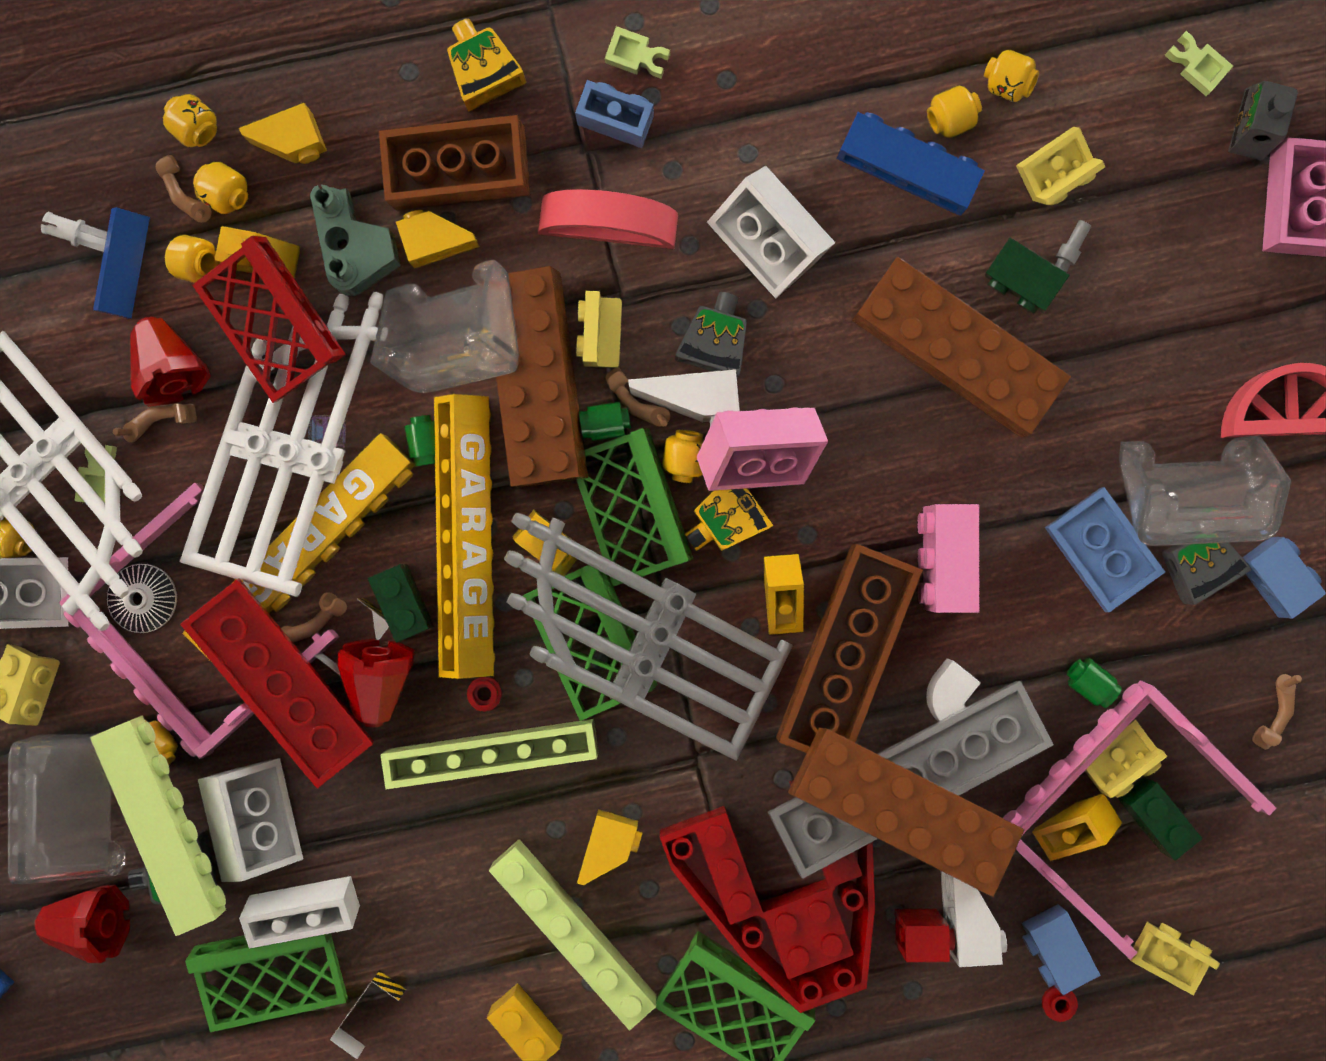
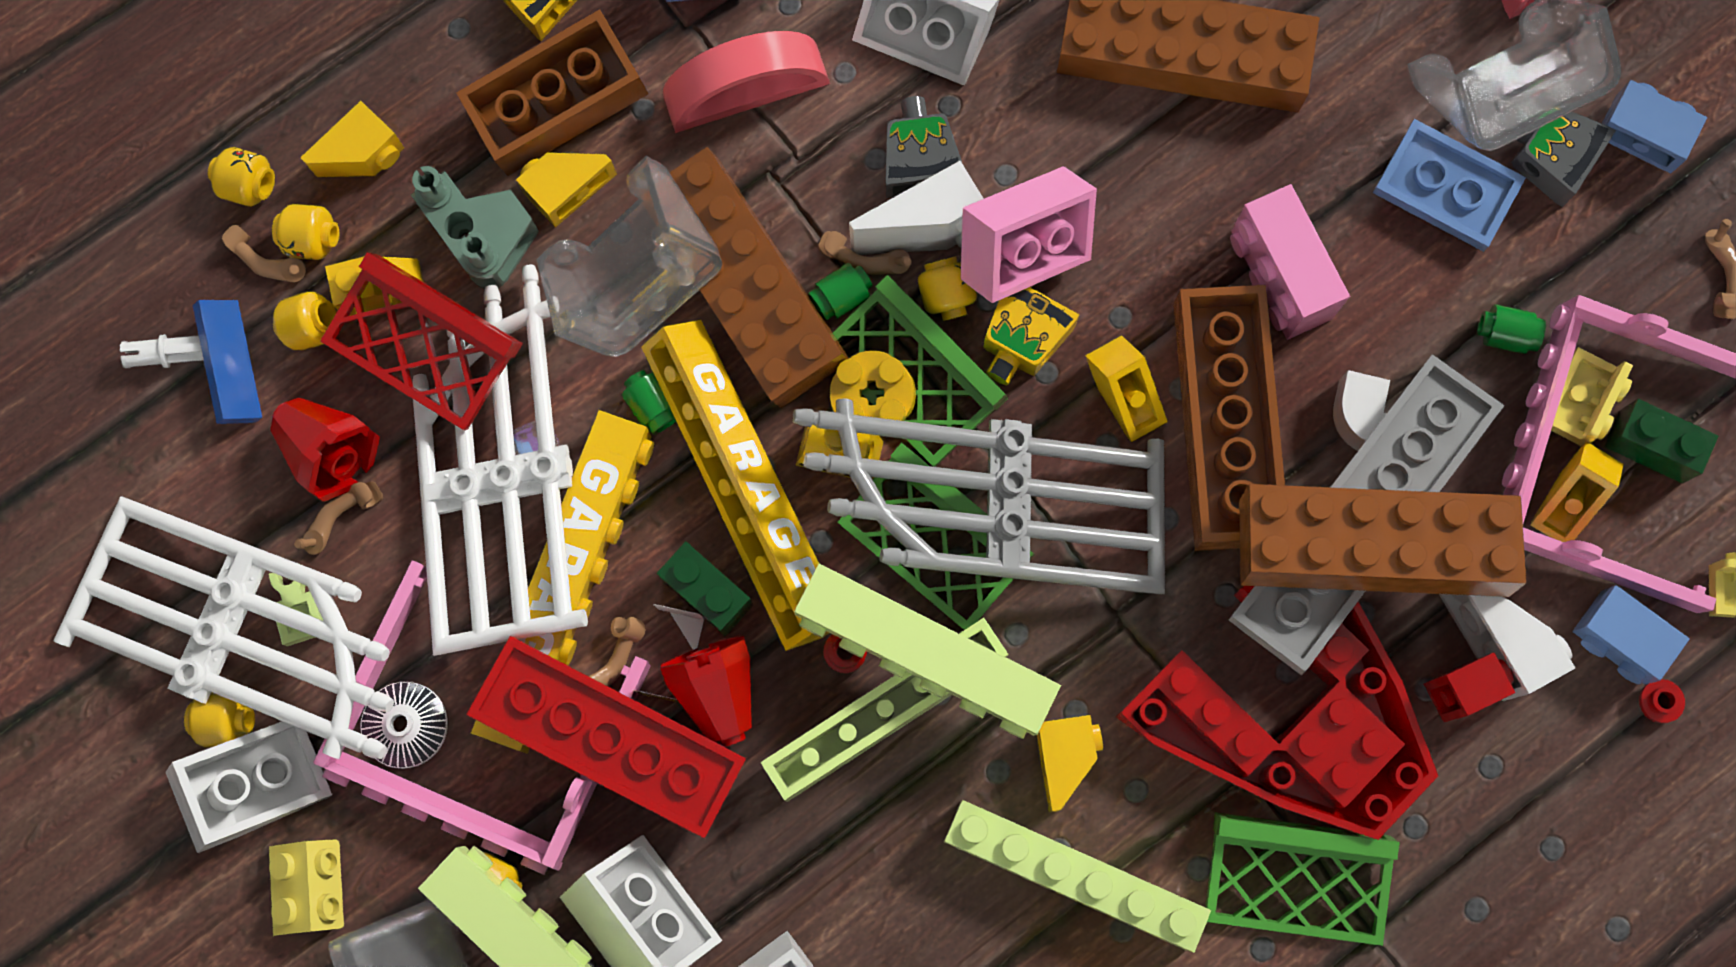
camera: 25 degrees left, 10 degrees down
(535, 733) = (926, 650): none -> yellowish green brick
(601, 330) = (792, 196): light yellow bracket -> none
(610, 504) = (887, 372): none -> yellow plate

